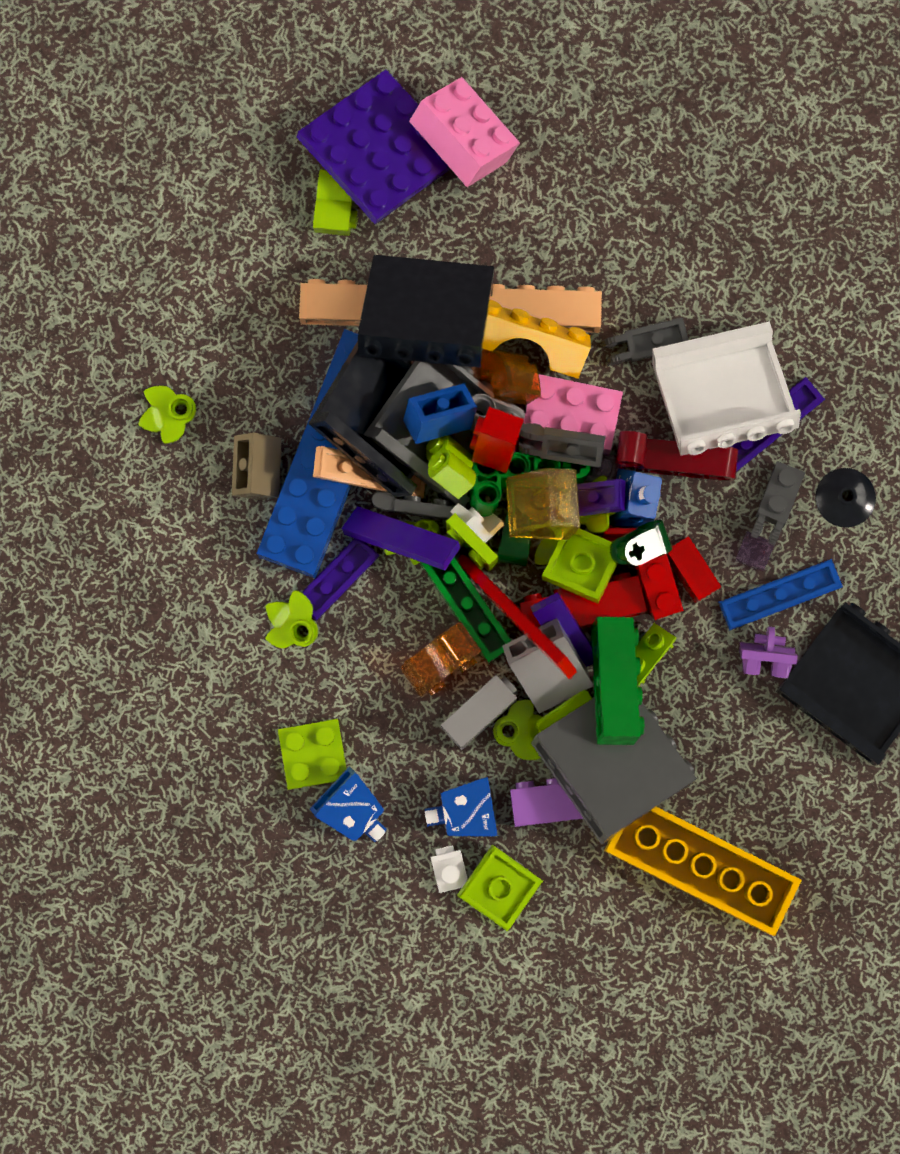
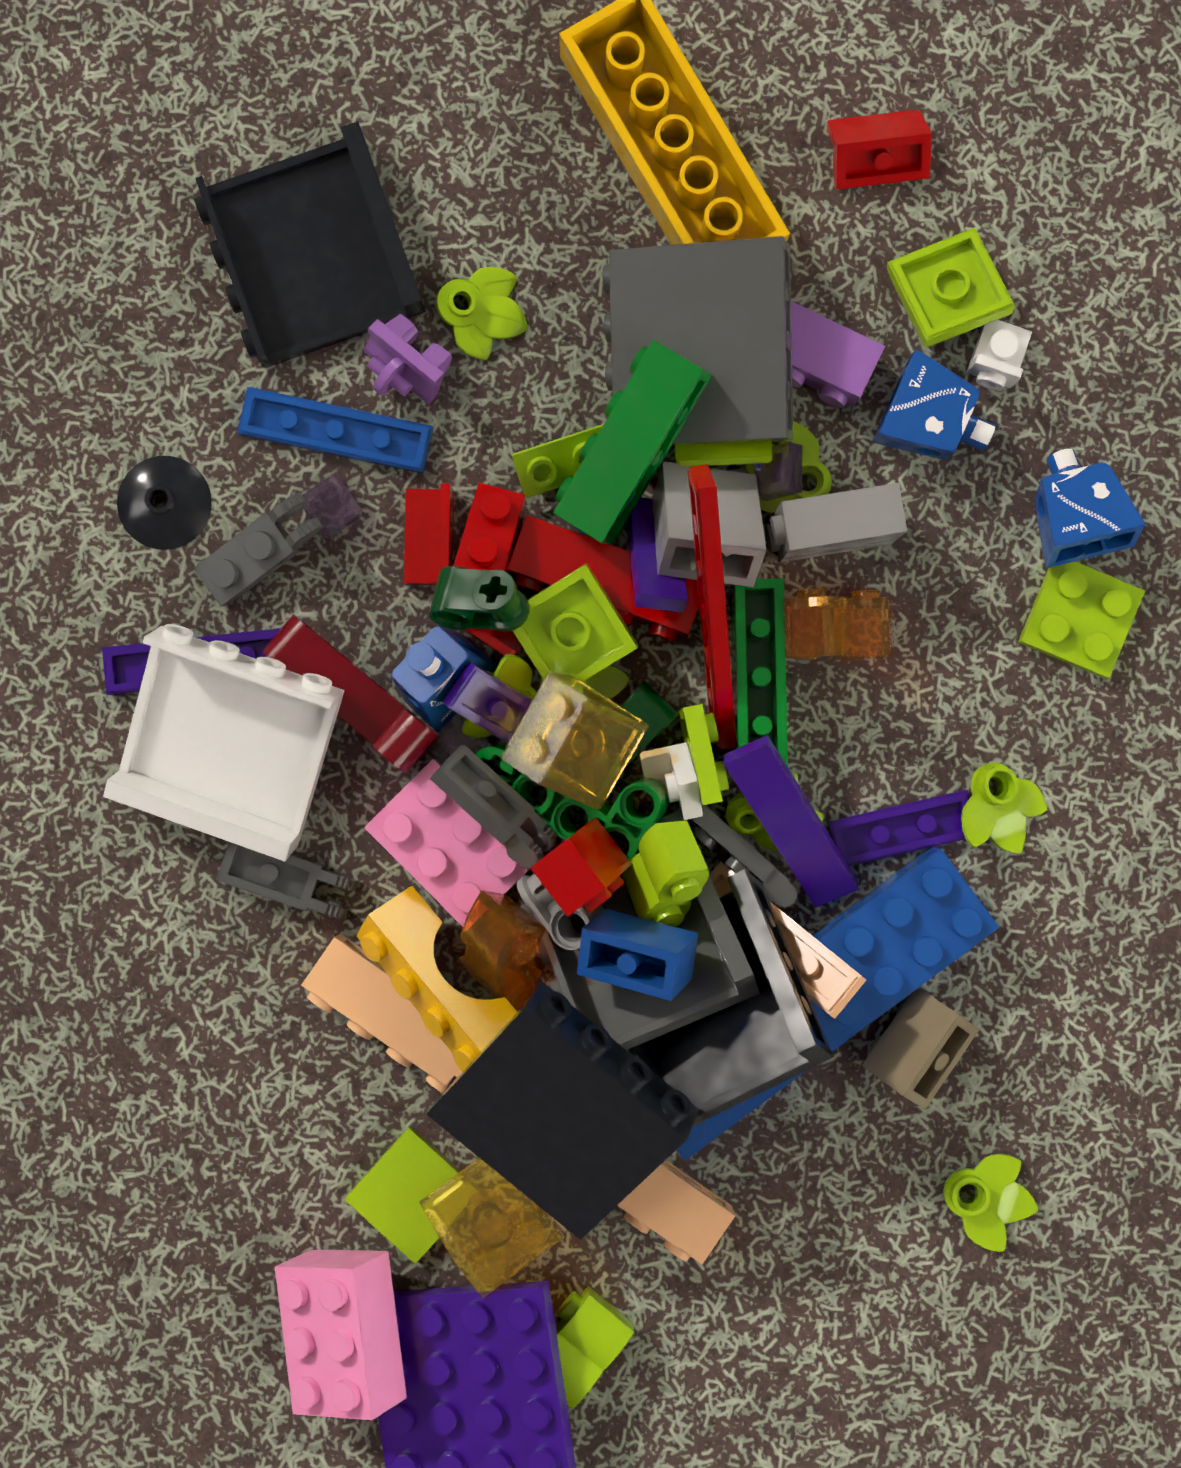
camera: 150 degrees left, 5 degrees up
(423, 232) = (488, 1225): none -> clear yellow slope
(472, 224) = (393, 1191): none -> lime tile
(525, 721) = (781, 475): none -> plate
(589, 942) = (880, 149): none -> red panel
(741, 713) = (489, 311): none -> lime plate

